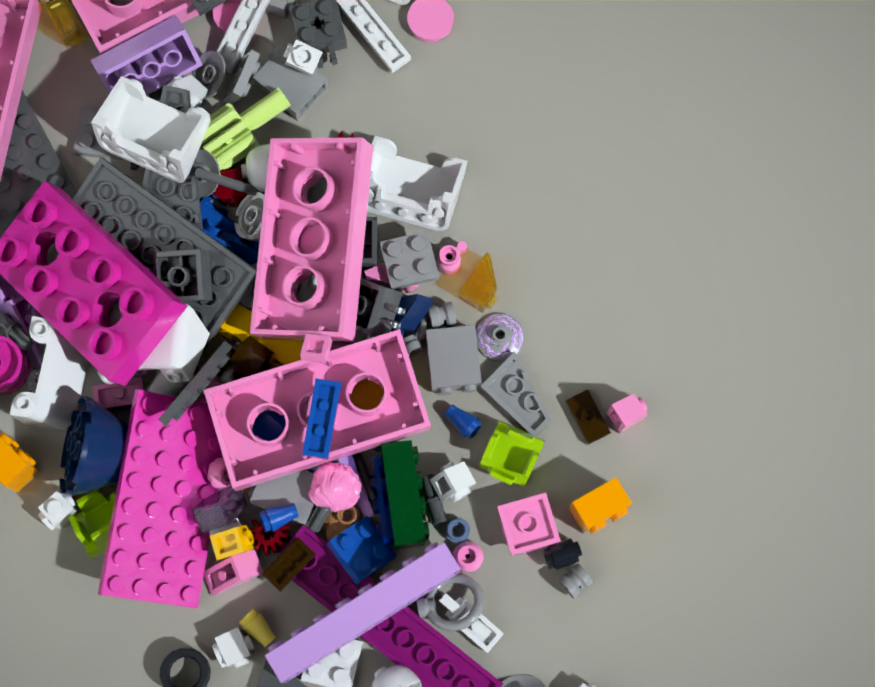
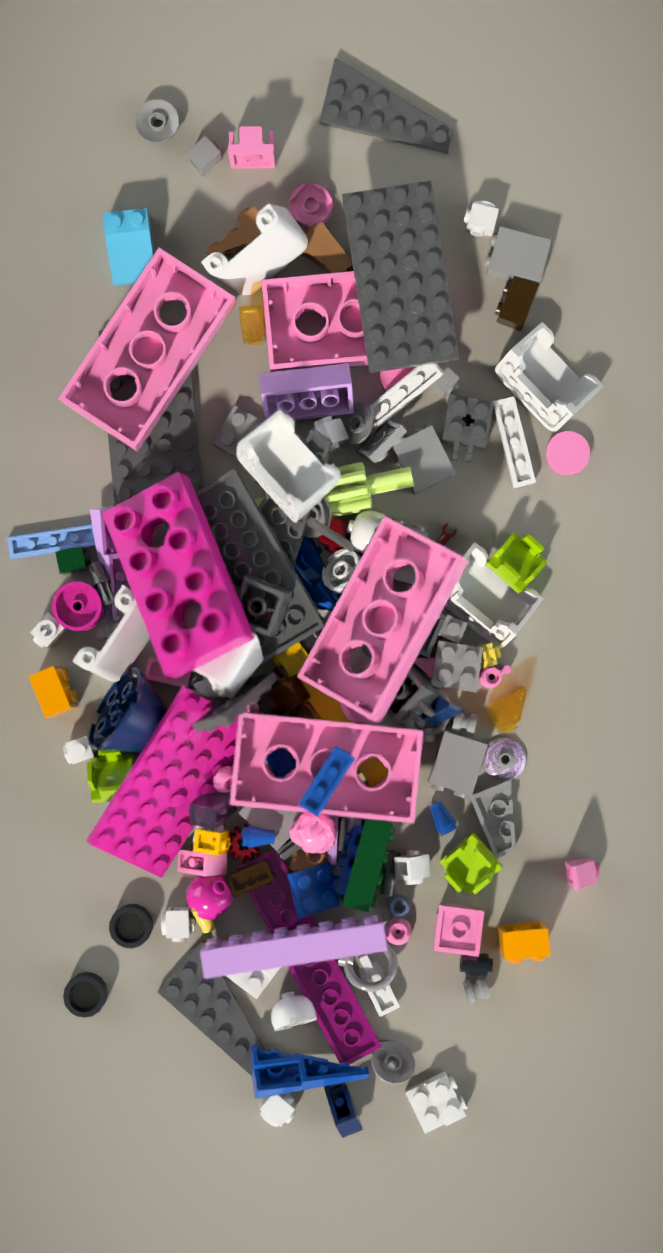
camera: 25 degrees right, 10 degrees up
(254, 601) = (209, 896): none -> dark pink cylinder
(302, 57) = (442, 449): white brick -> none
(316, 348) = (346, 719): bright pink plate -> none
(389, 227) = (452, 629): none -> light grey brick
(426, 136) = (518, 561): none -> lime panel
(438, 238) = (489, 655): none -> light yellow gear
(588, 417) = (547, 859): dark brown plate -> none

